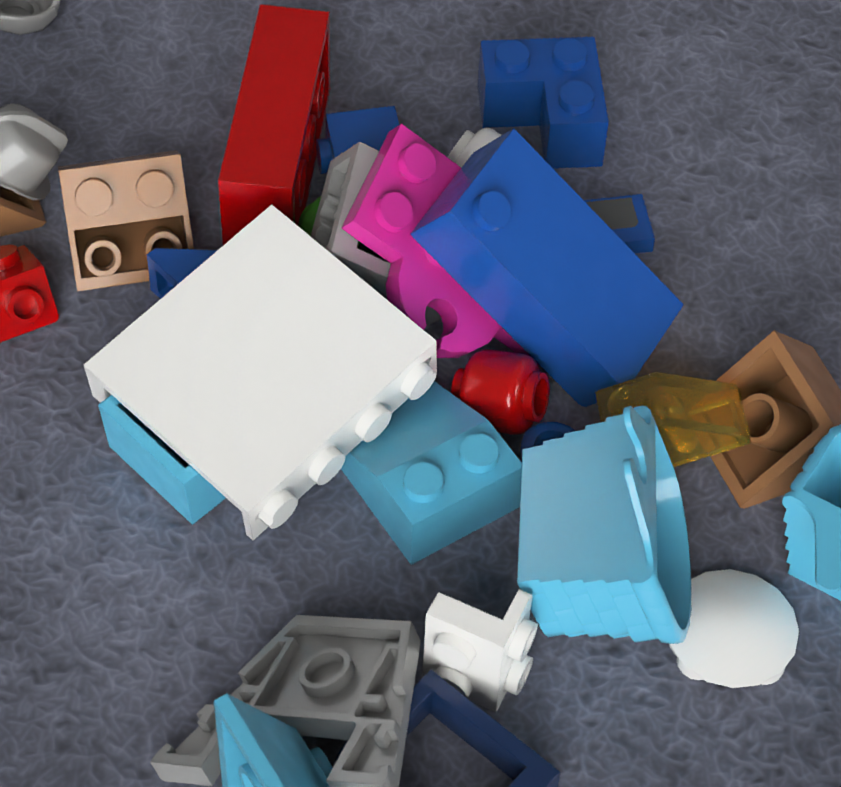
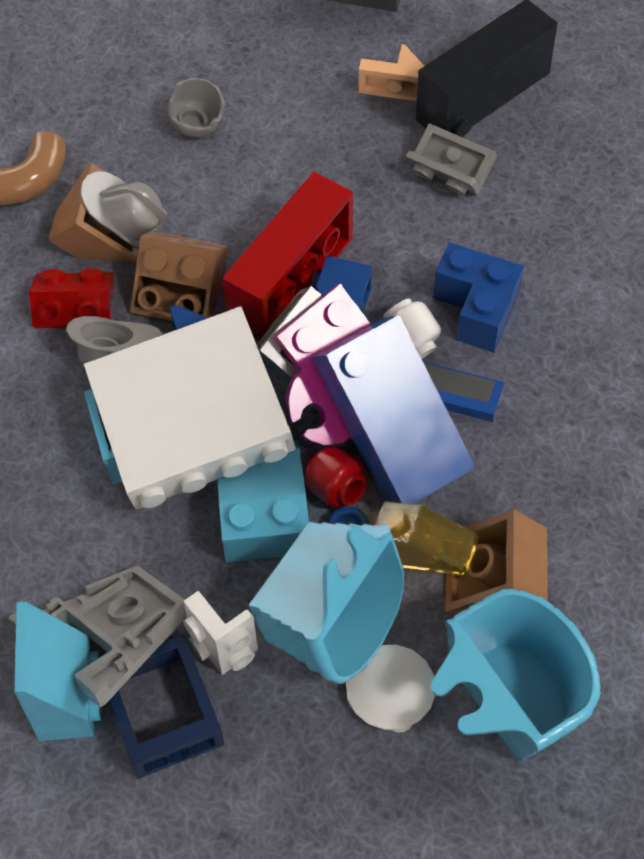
camera: 30 degrees right, 5 degrees up
(72, 334) = (102, 336): none -> light grey piece

